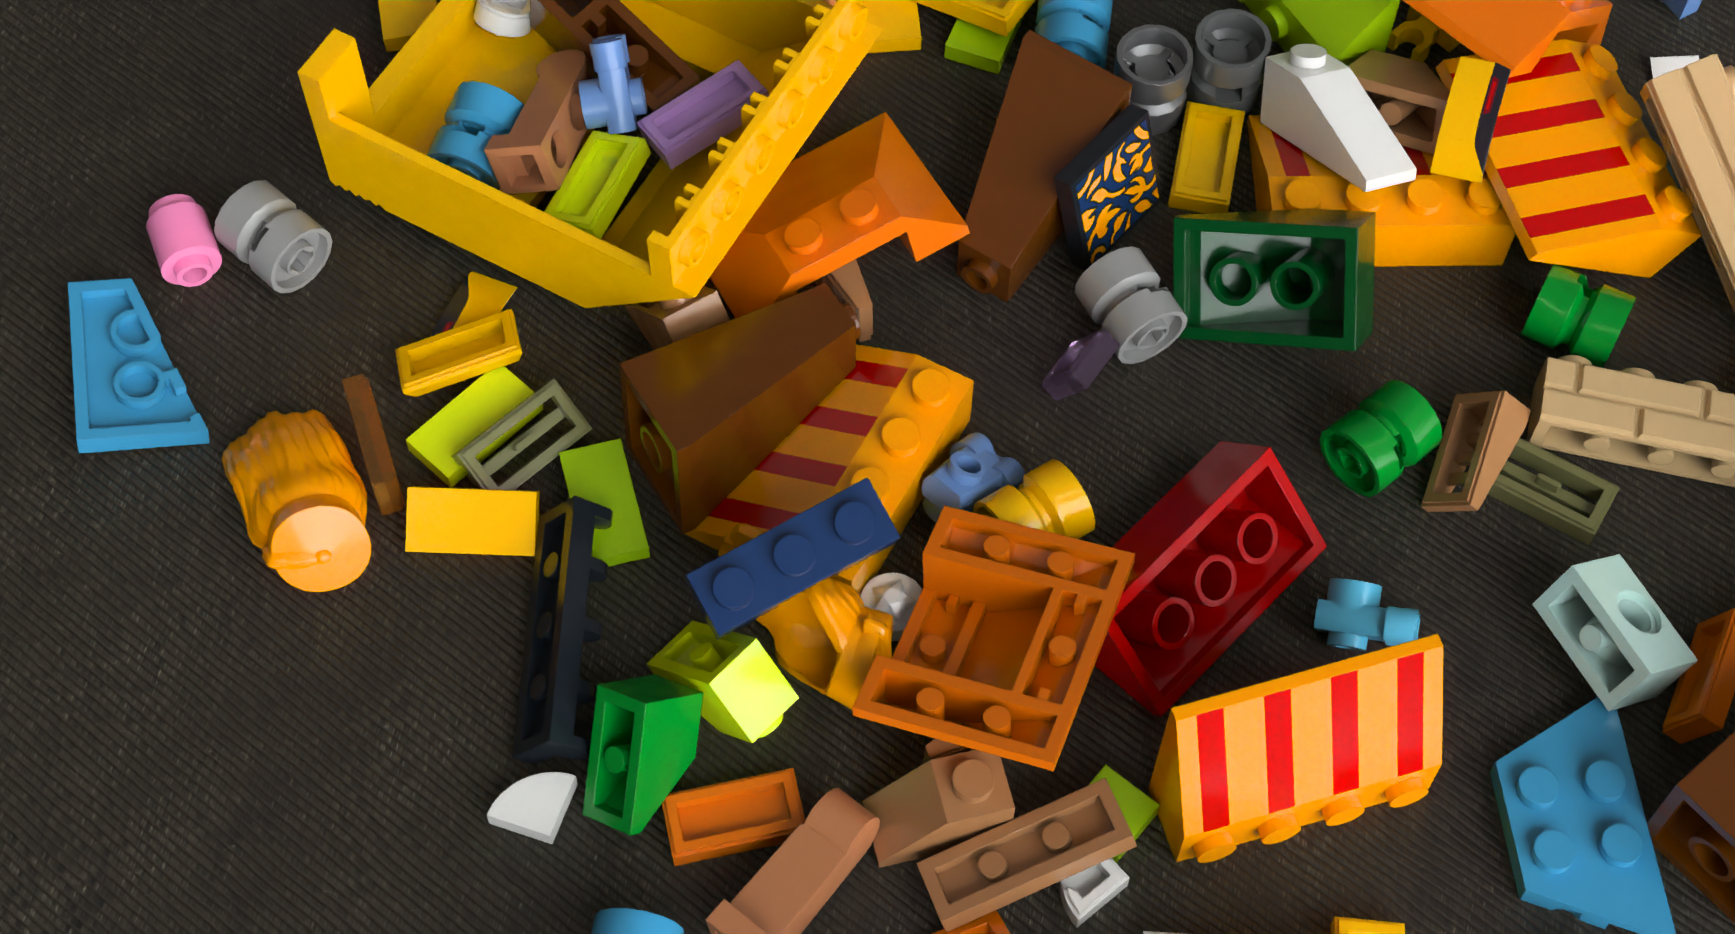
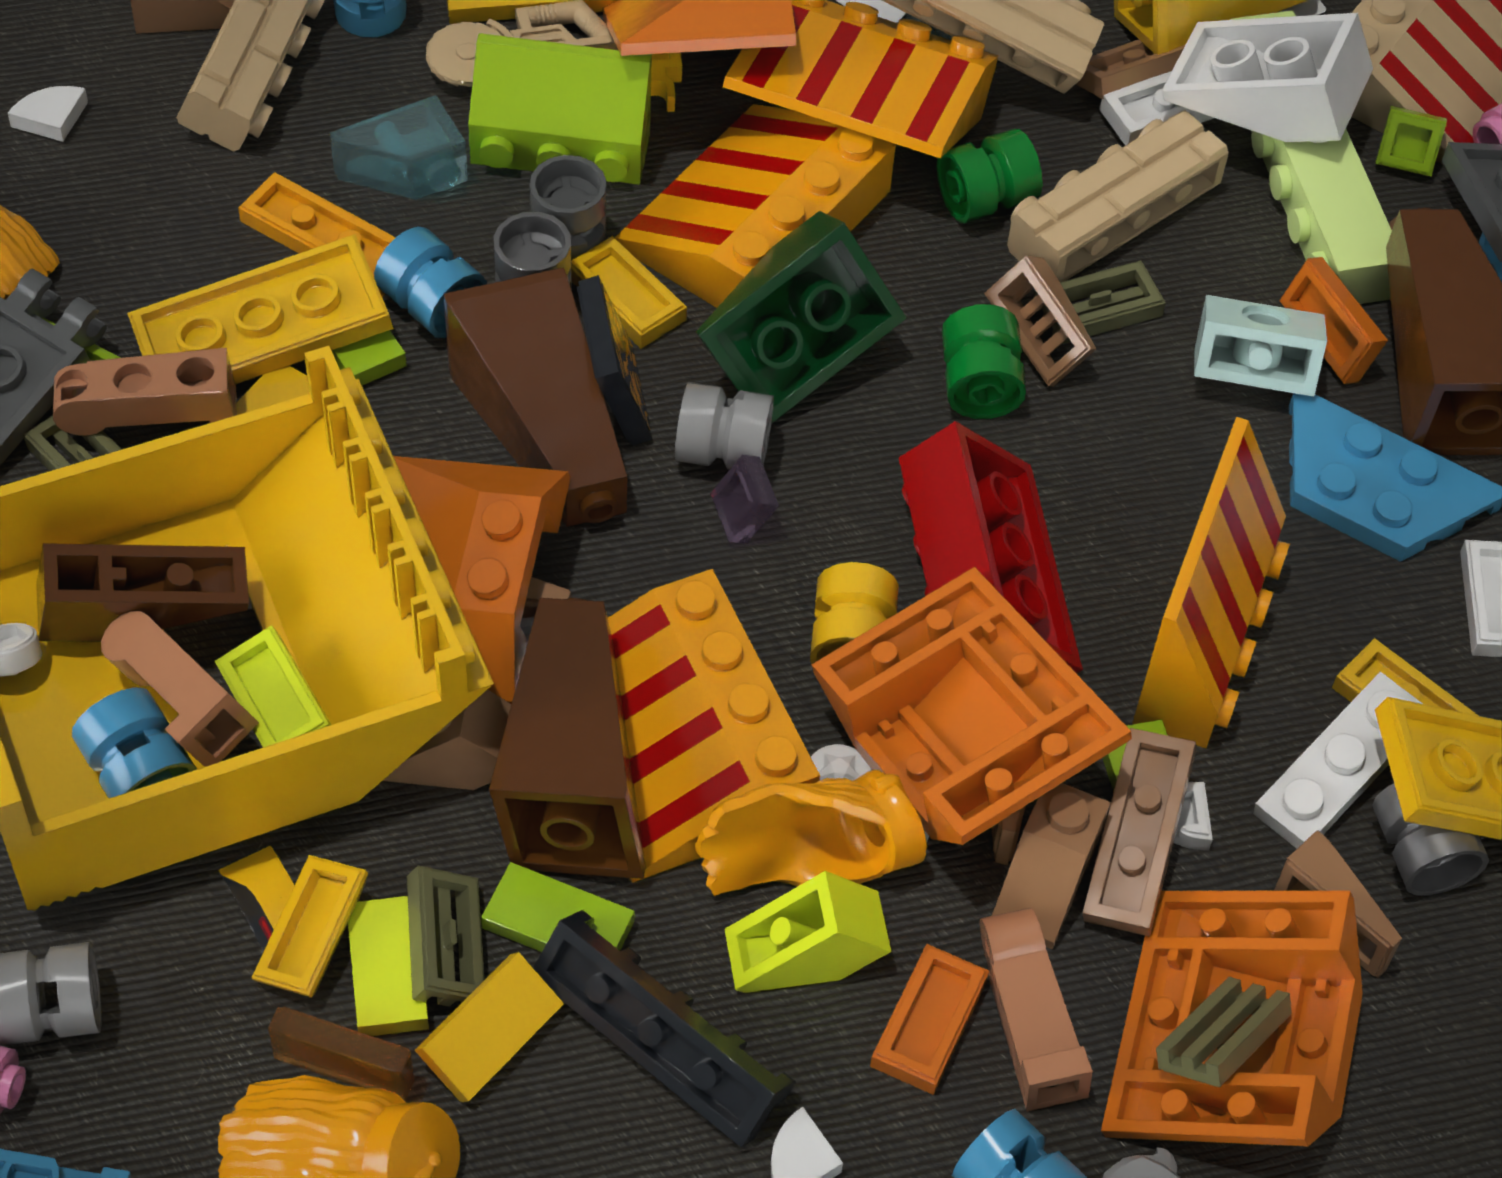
camera: 55 degrees left, 5 degrees down
(613, 96) = (209, 612): medium blue plate -> none
(639, 748) = (828, 1039): green slope -> none
(700, 114) = (290, 567): lavender tile -> none
(792, 558) = (784, 836): dark blue arch -> none
(968, 476) = (781, 643): medium blue plate -> none
(1331, 118) = (694, 180): white slope -> none
(1354, 616) = (1111, 486): medium azure plate -> none
(1405, 95) = (718, 135): medium nougat slope -> none
(1469, 119) = (799, 96): yellow sticker -> none

